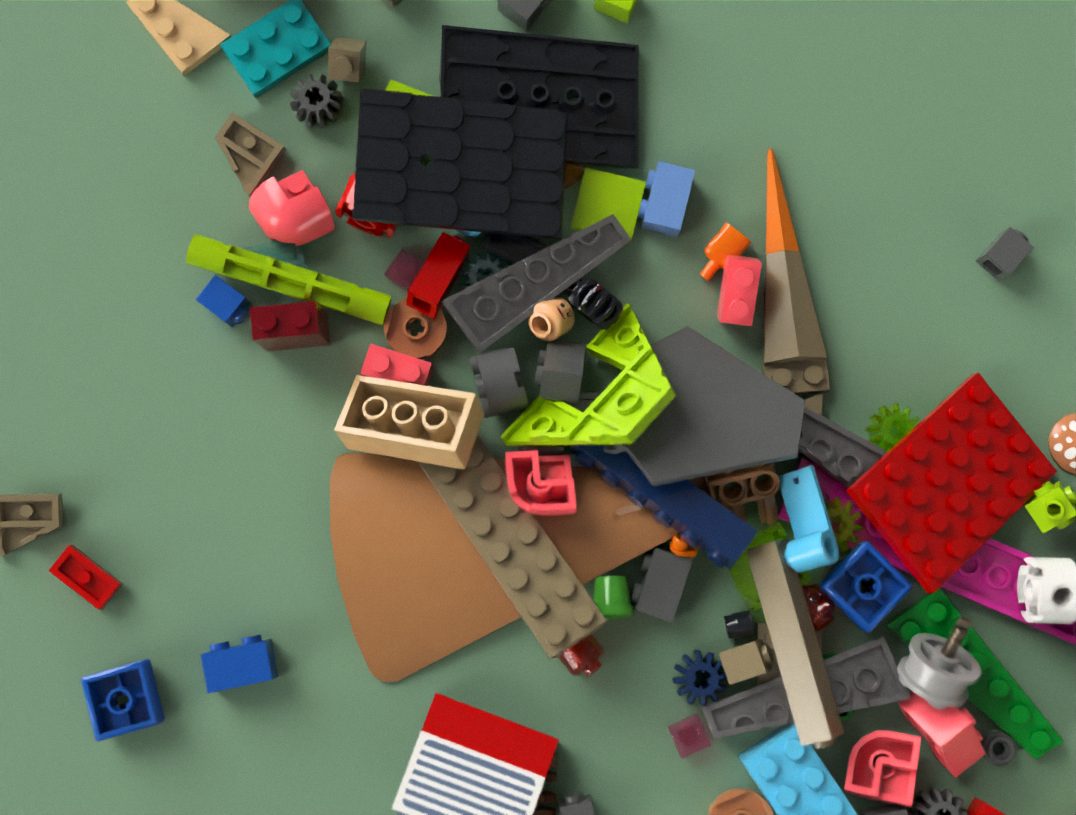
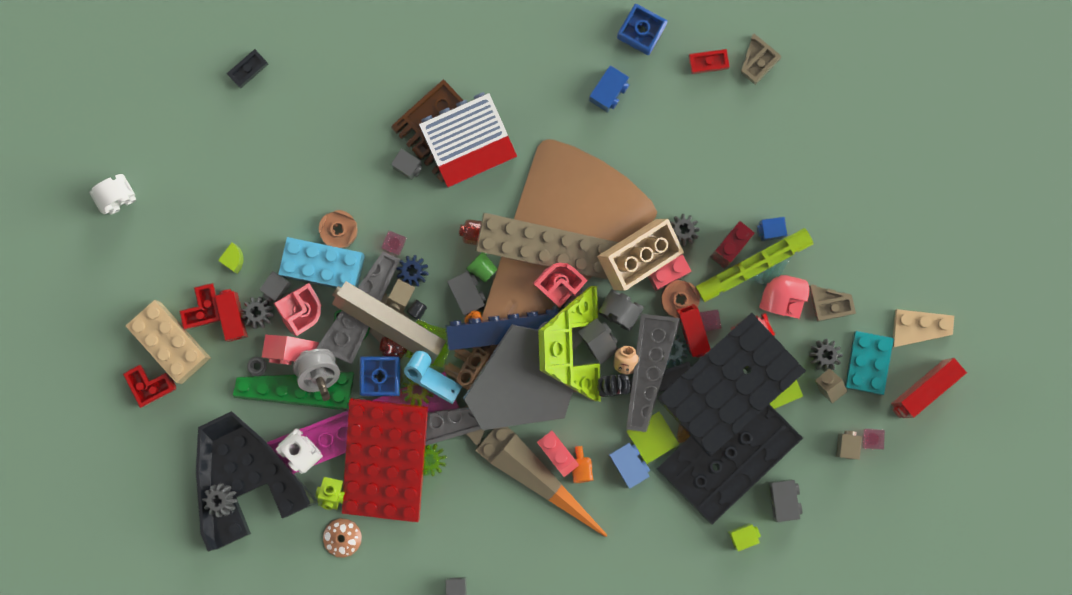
camera: 140 degrees right, 0 degrees up
(319, 398) = (689, 228): none -> dark grey gear

